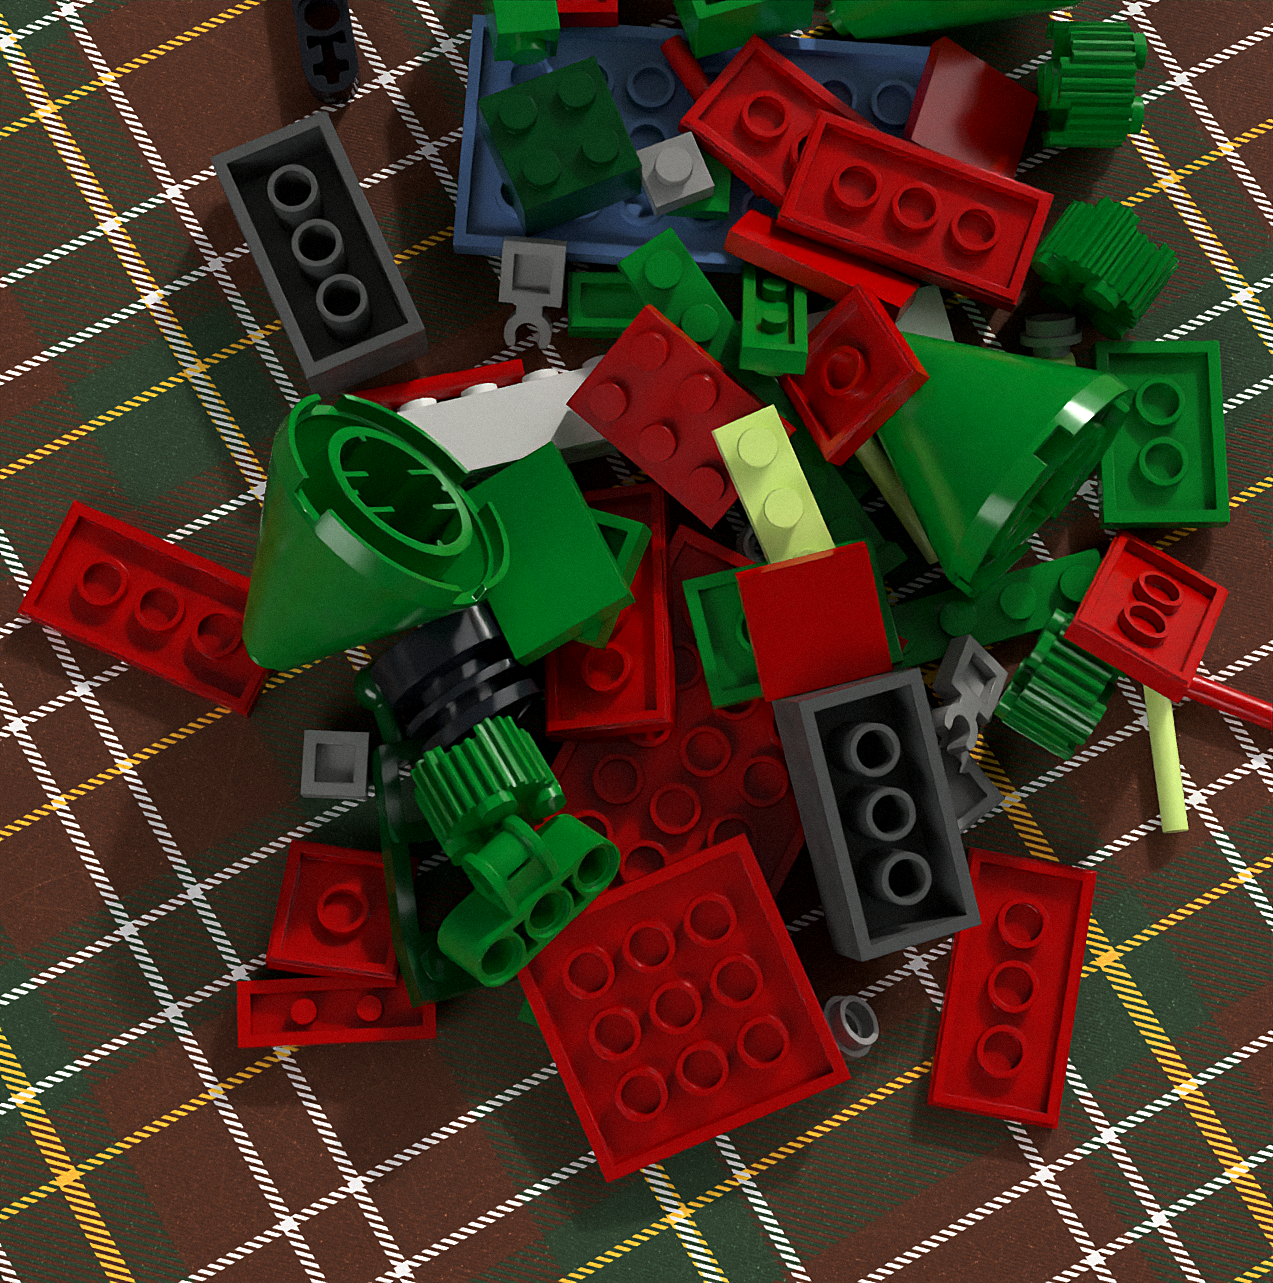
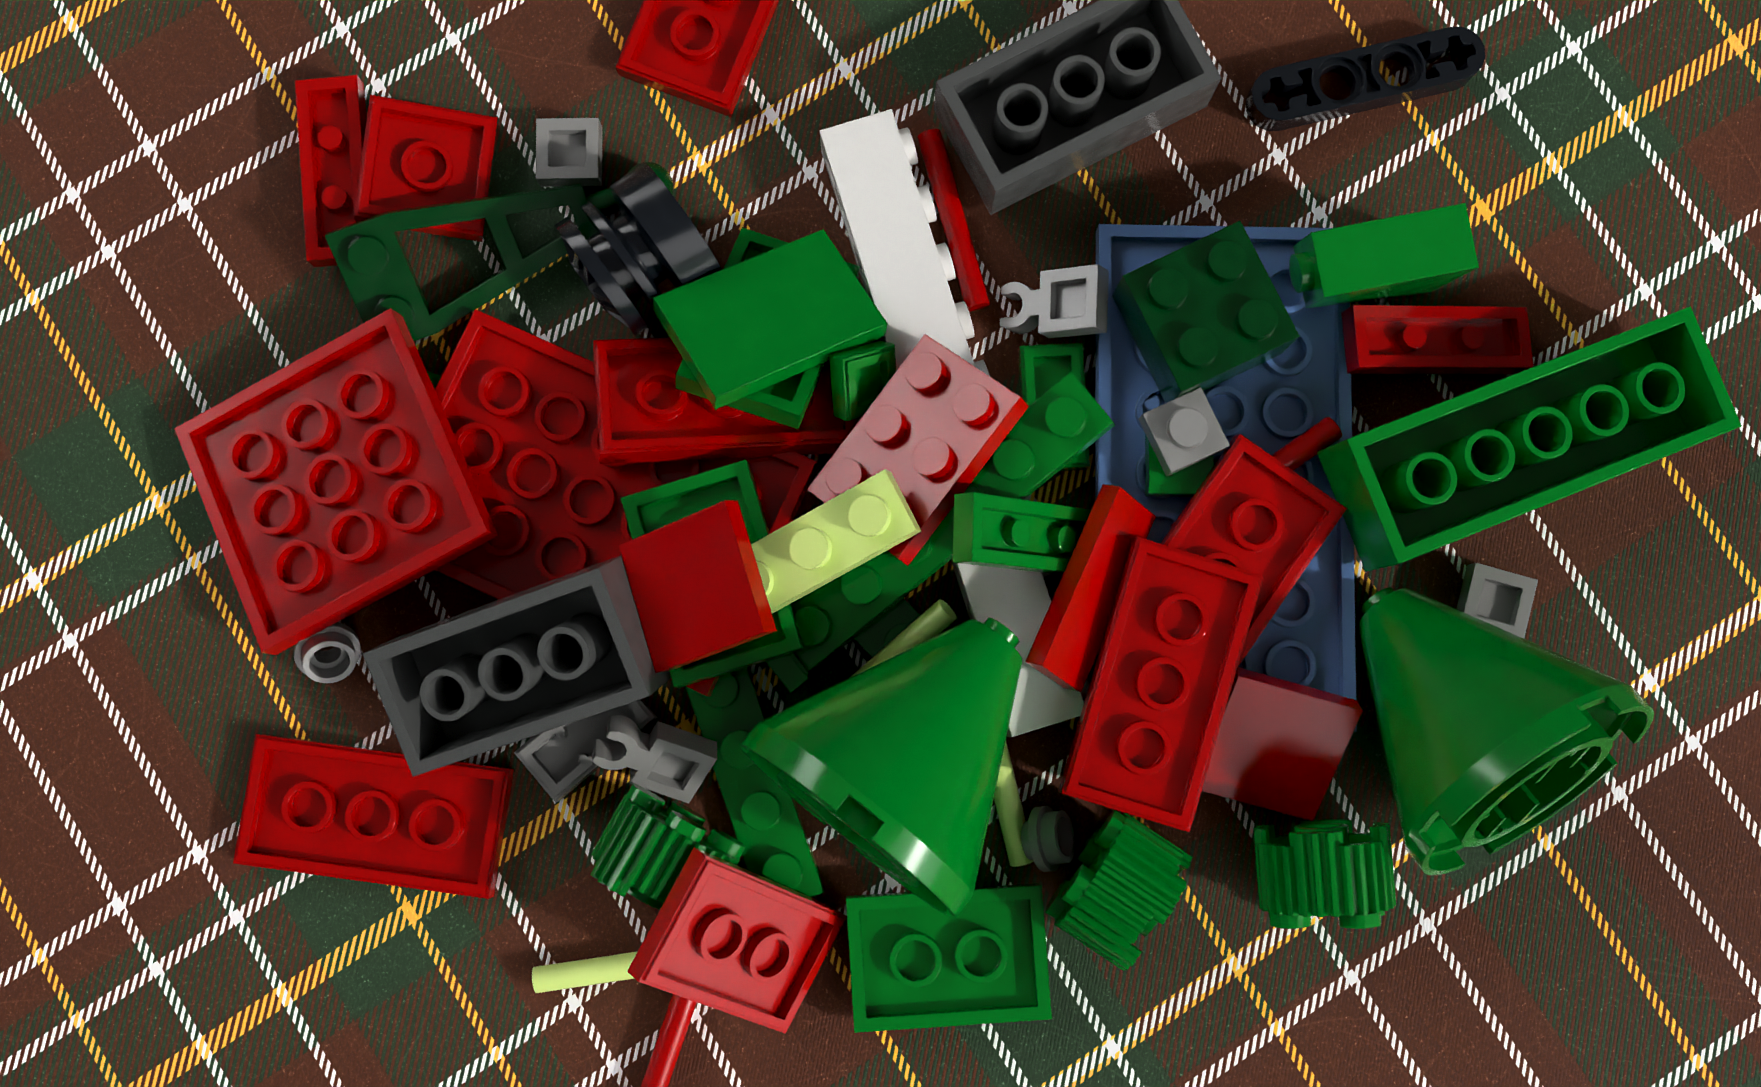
camera: 90 degrees right, 5 degrees up
(362, 535) = (776, 139): green cone -> none
(481, 783) = (523, 279): green brick -> none
(525, 894) = (421, 321): green piece -> none
(603, 470) = (859, 377): none -> green tile
(853, 375) = (963, 618): red tile -> none

